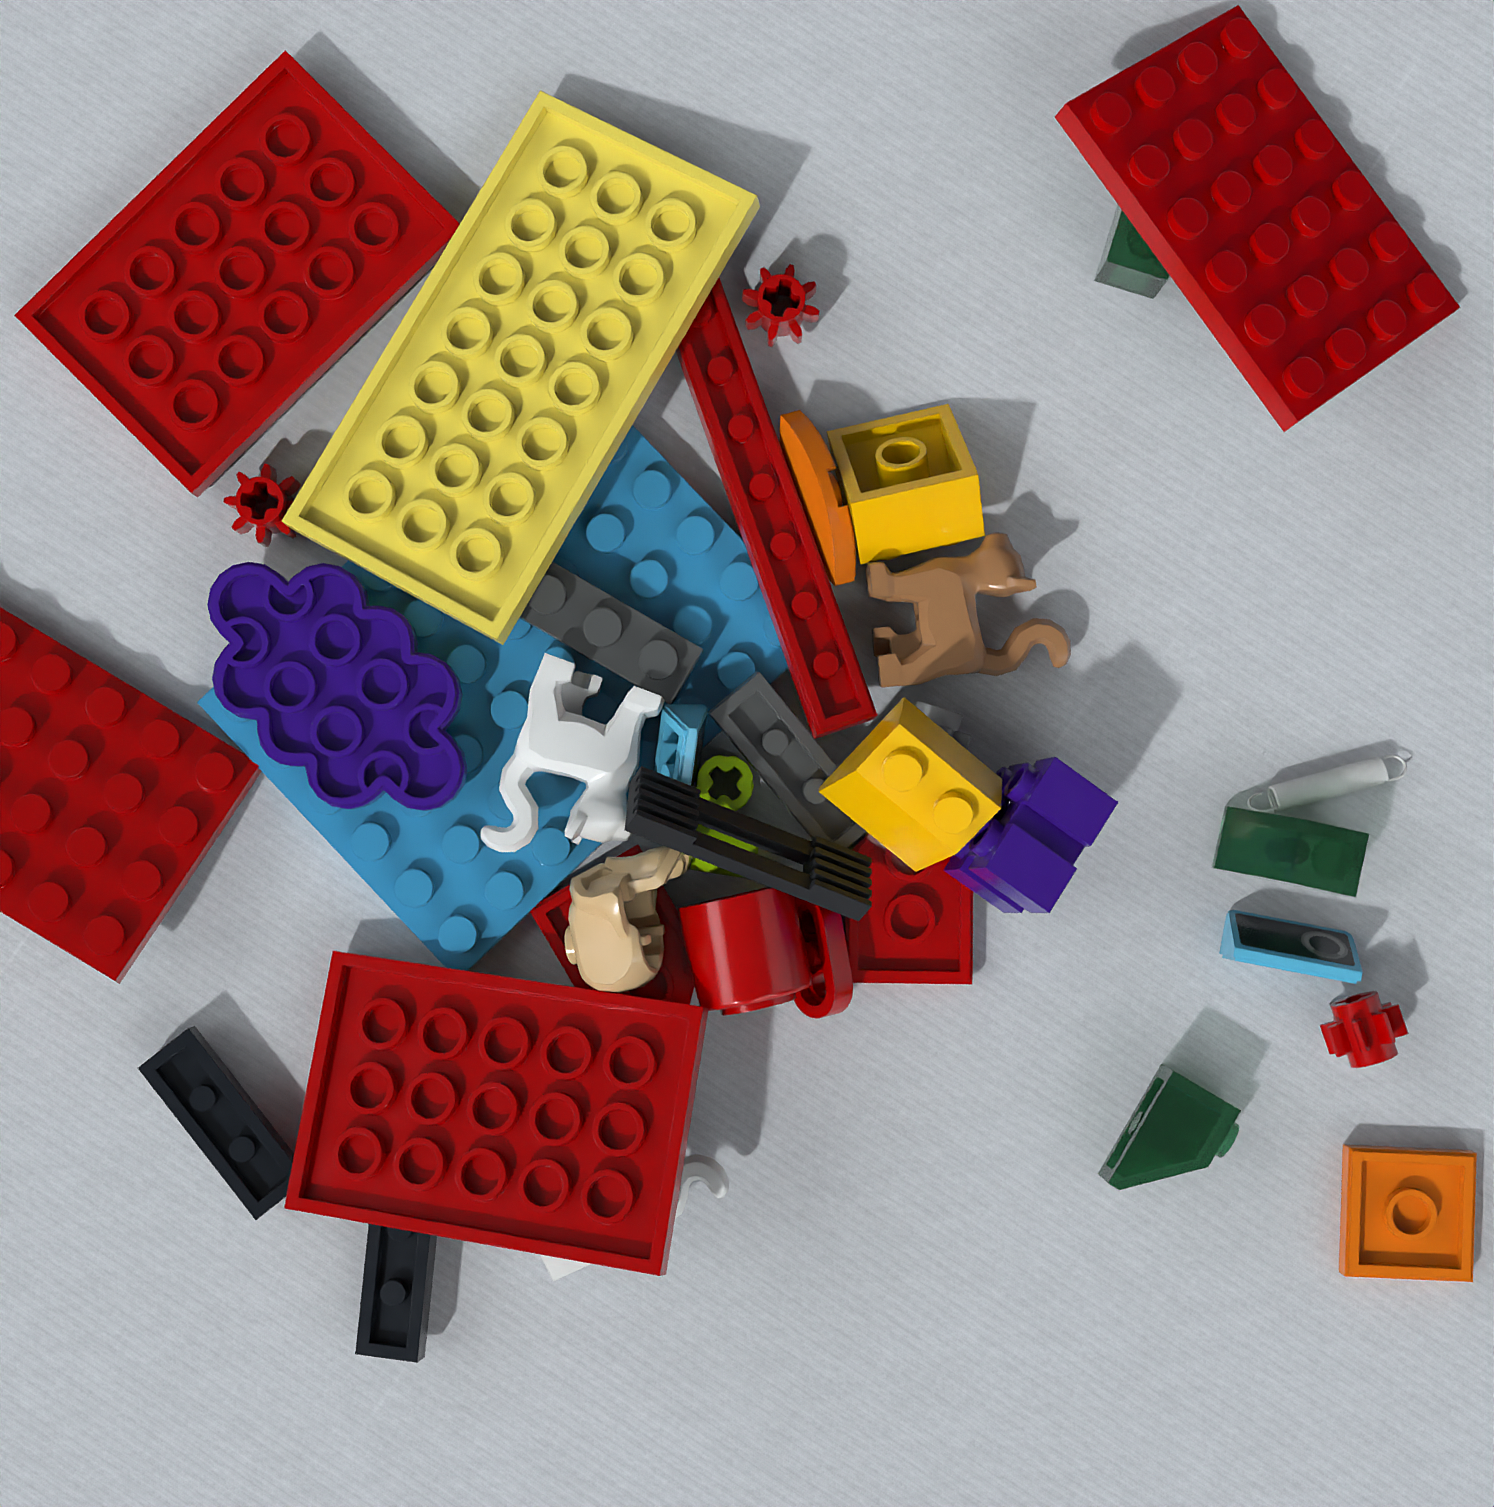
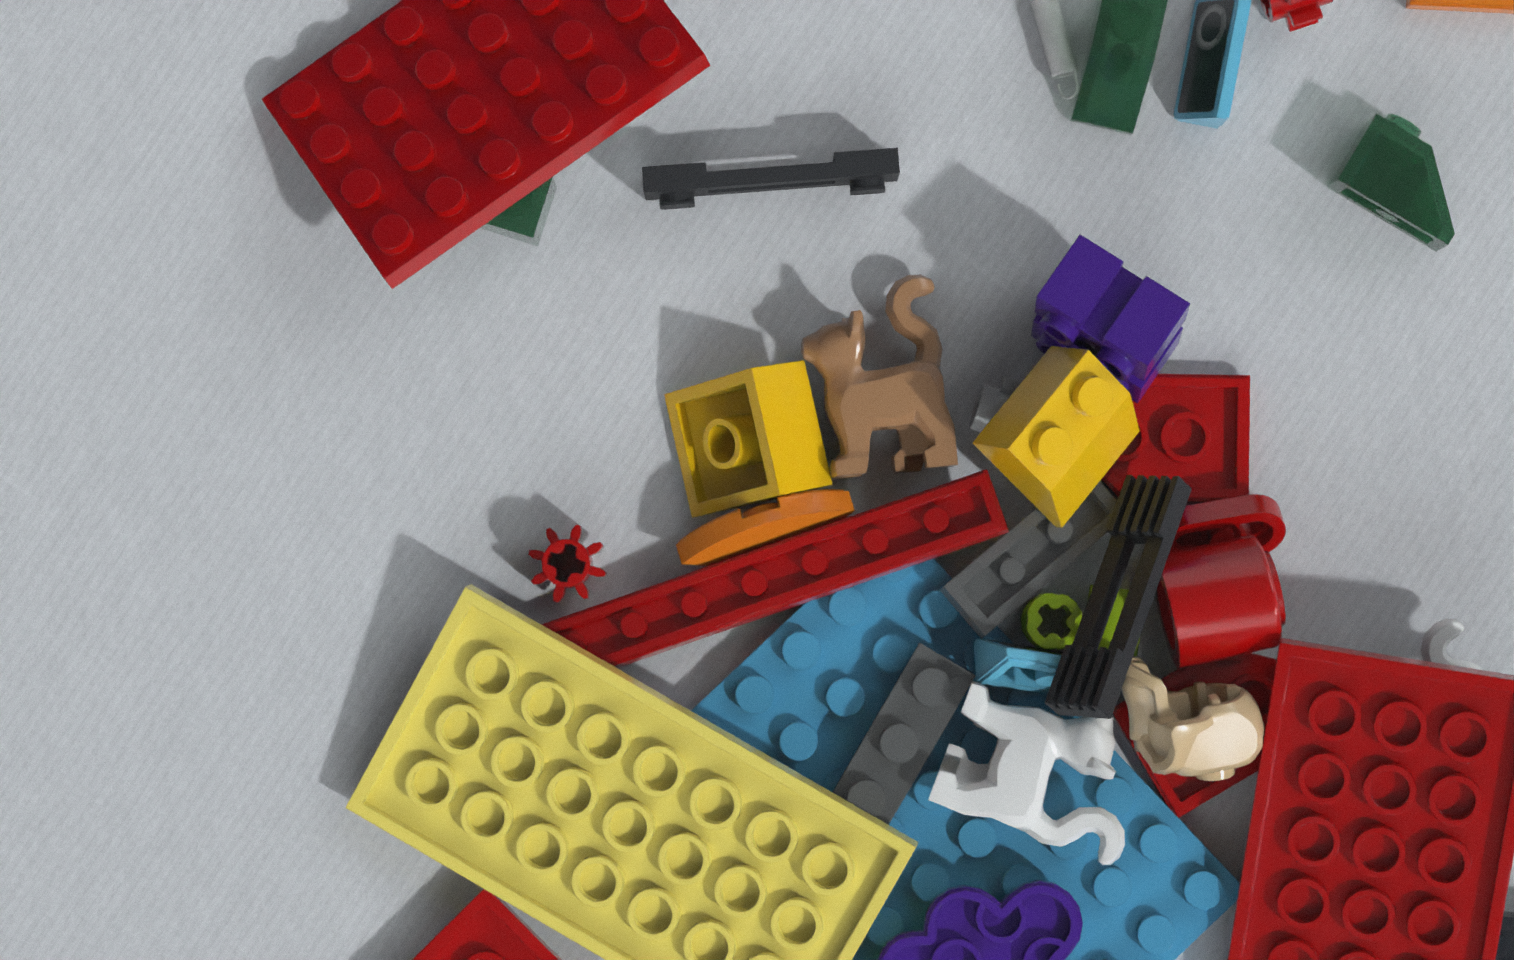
camera: 90 degrees left, 0 degrees up
(1160, 414) = (680, 183): none -> black container

